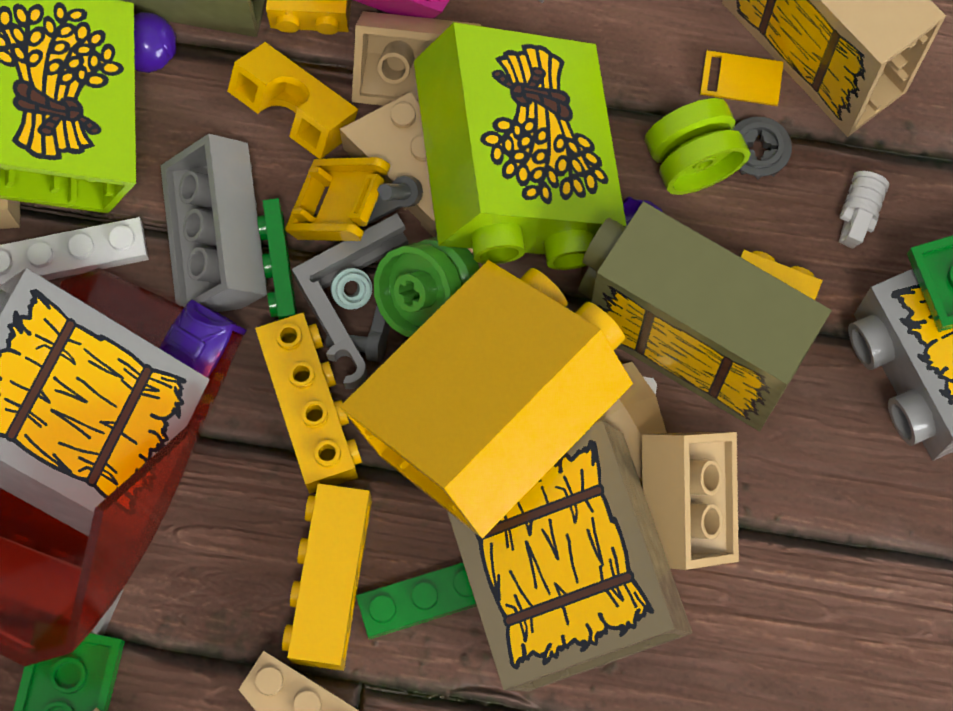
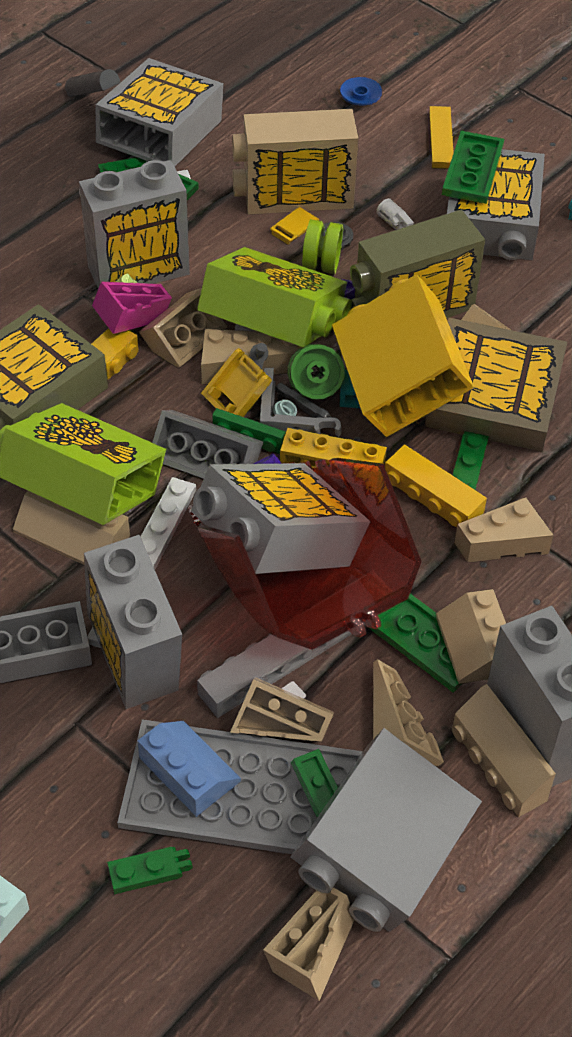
camera: 60 degrees left, 20 degrees down
(271, 79) = (180, 375): yellow arch -> none

